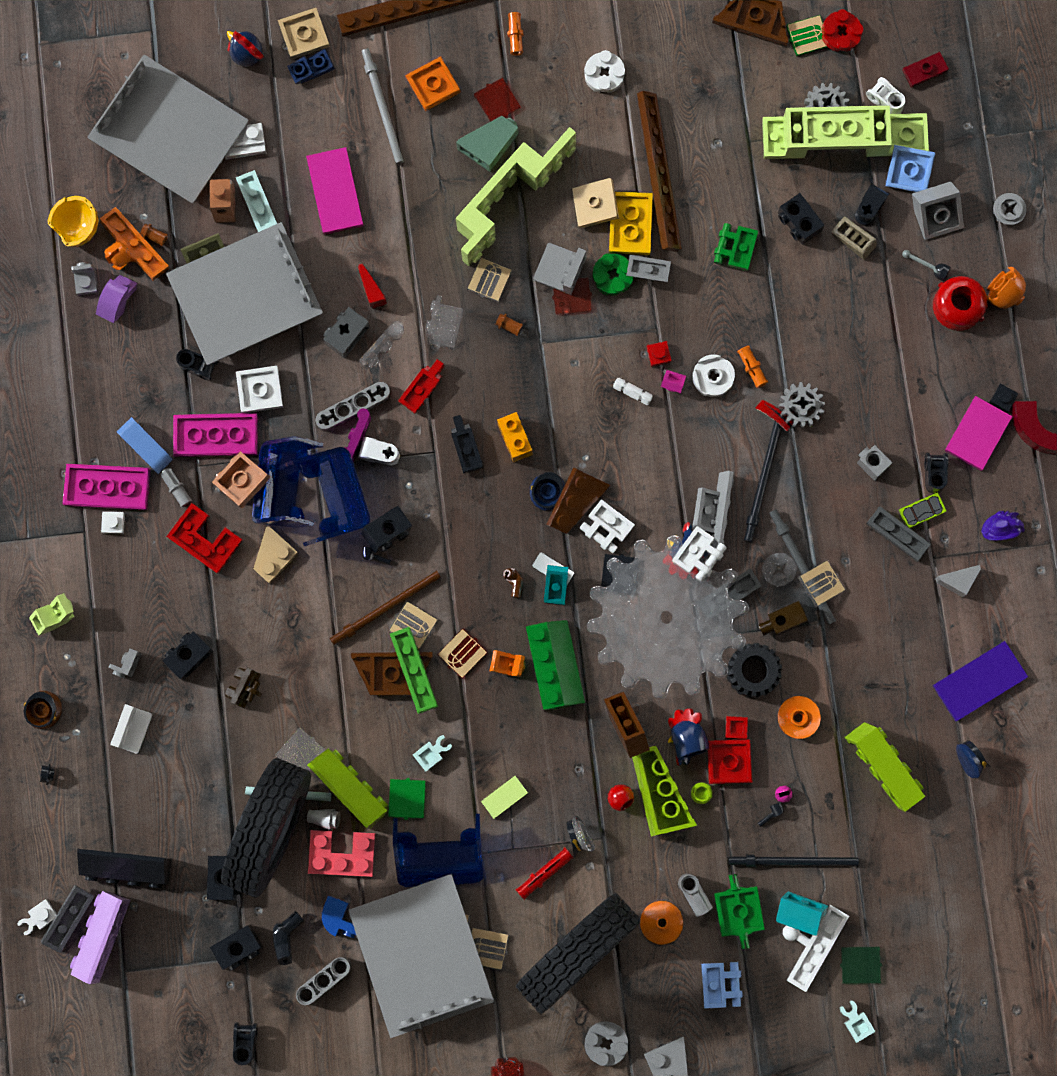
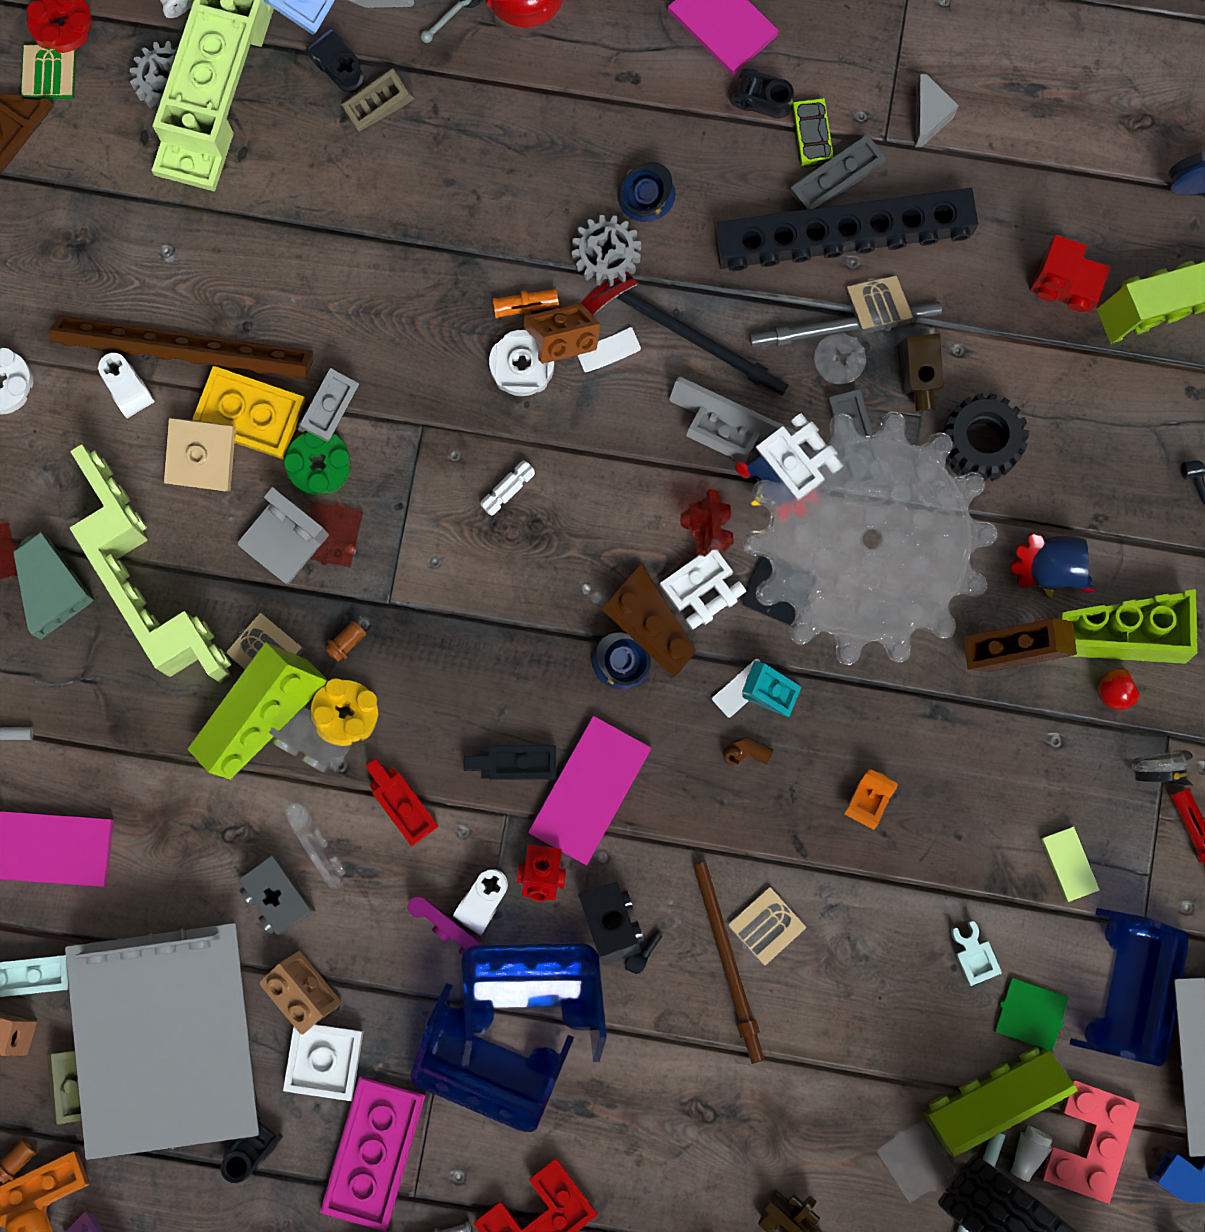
camera: 75 degrees left, 0 degrees up
(240, 479) = (462, 1133): nougat plate -> none
(273, 555) = (594, 1115): tan wing -> none
(294, 363) = (300, 992): none -> medium nougat bracket
(350, 402) = (390, 921): light grey beam -> none
(373, 292) = (225, 835): red slope -> none
(384, 673) = (832, 981): reddish brown wing -> none
(404, 481) = (541, 873): none -> red brick
(413, 670) = (842, 945): bright green tile -> none
(459, 287) = (262, 698): none -> lime wedge
(462, 653) = (832, 863): piece -> none
(463, 496) = (589, 790): none -> dark pink tile
(475, 330) = (341, 694): none -> yellow plate
(514, 437) = (524, 683): light orange brick -> none
(555, 665) = (892, 729): green slope -> none
(622, 148) = (126, 388): none -> white piece
(645, 513) = (705, 523): none -> clear red hips
(658, 354) = (462, 433): red plate -> none
(673, 381) = (512, 423): dark pink plate -> none
(701, 793) = (1141, 570): lime plate -> none
(729, 761) = (1106, 515): red plate -> none
(736, 727) = (1058, 490): red plate -> none
(739, 394) = (563, 332): none -> dark orange bracket
(739, 426) = (610, 350): none -> white sticker
(742, 247) = (341, 262): green plate -> none
(781, 789) = (1166, 454): dark pink hinge -> none
(805, 216) = (323, 156): black brick -> none
(810, 717) = (1076, 383): orange dish -> none
(836, 479) = (954, 204): none -> black brick
(847, 419) = (647, 192): none -> dark blue piece
(873, 471) = (726, 162): light grey brick -> none
(876, 696) = (1068, 276): none -> red brick
(980, 681) = (1082, 131): dark purple tile -> none
(1002, 526) = (869, 30): dark purple hat -> none

